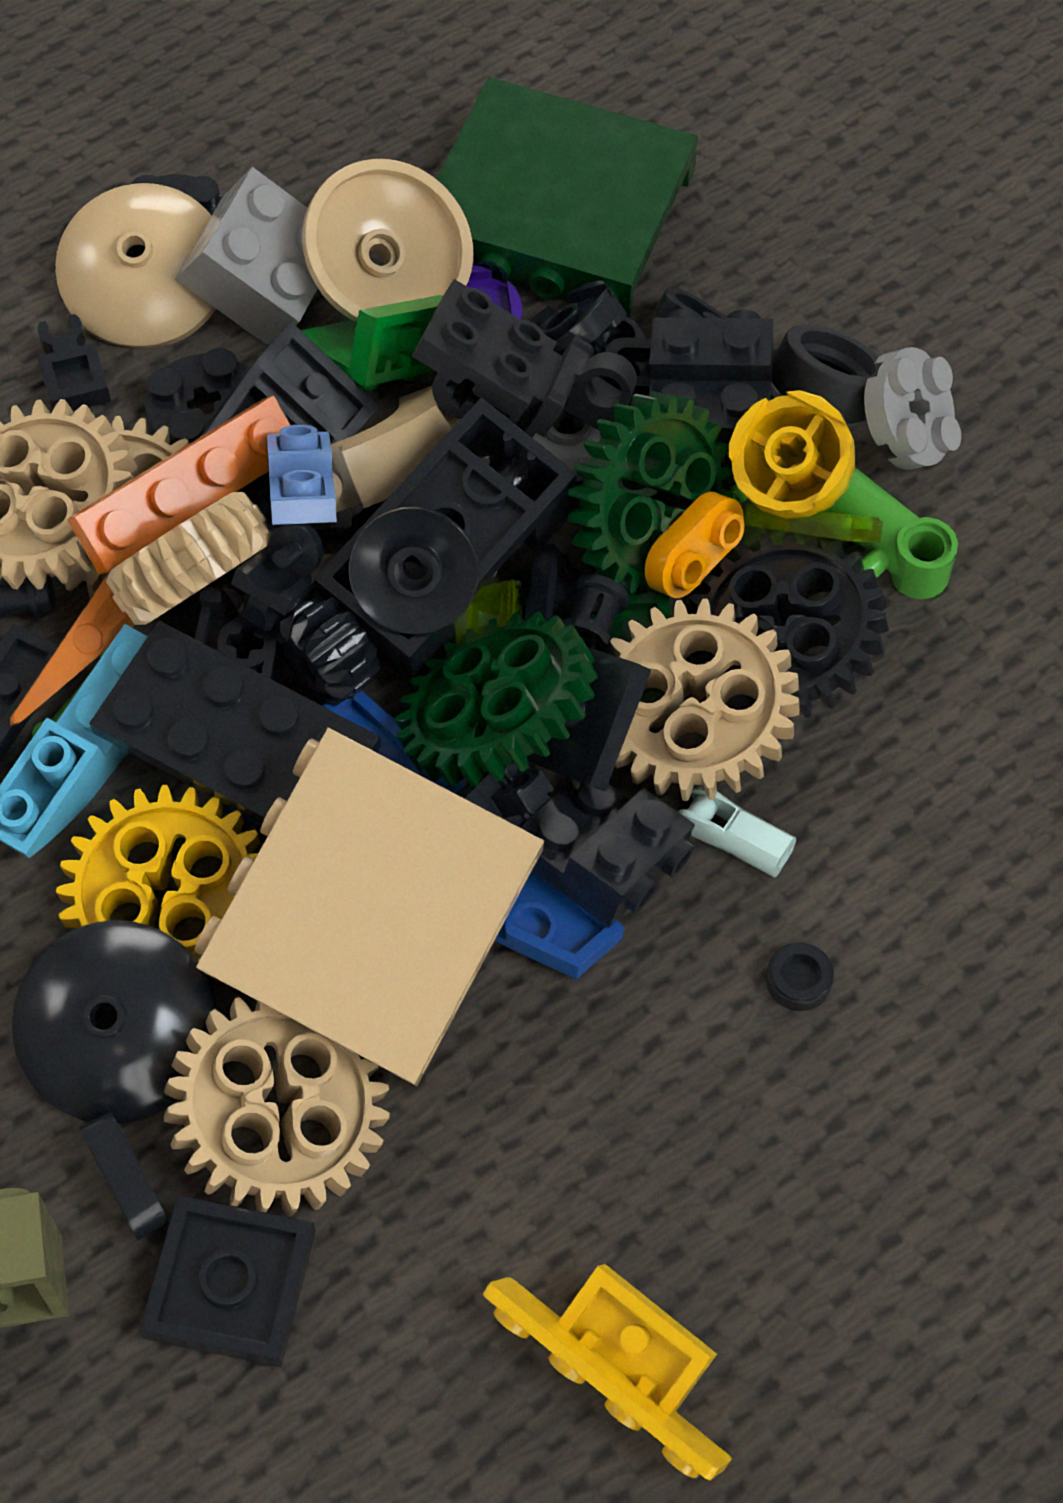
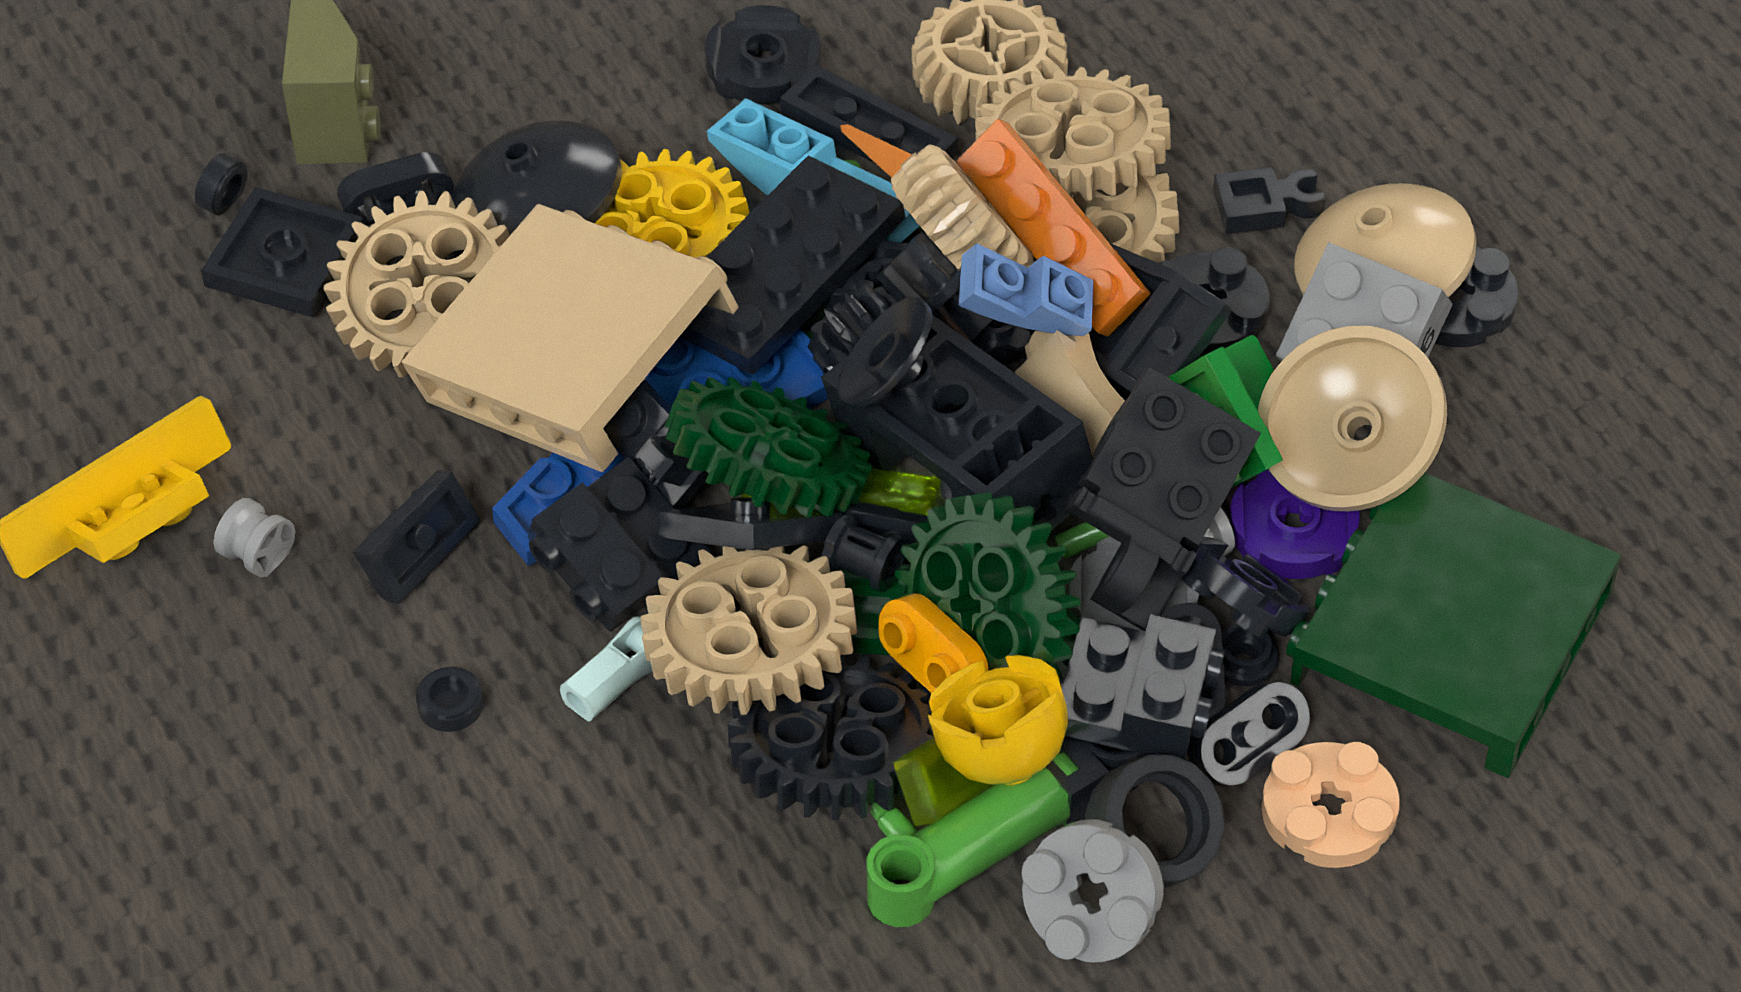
camera: 100 degrees right, 10 degrees down
(131, 1378) = (220, 184): none -> black tile
(590, 1031) = (416, 536): none -> black hinge
(650, 1203) = (254, 537): none -> light grey wheel
(760, 250) = (1336, 769): none -> light nougat plate

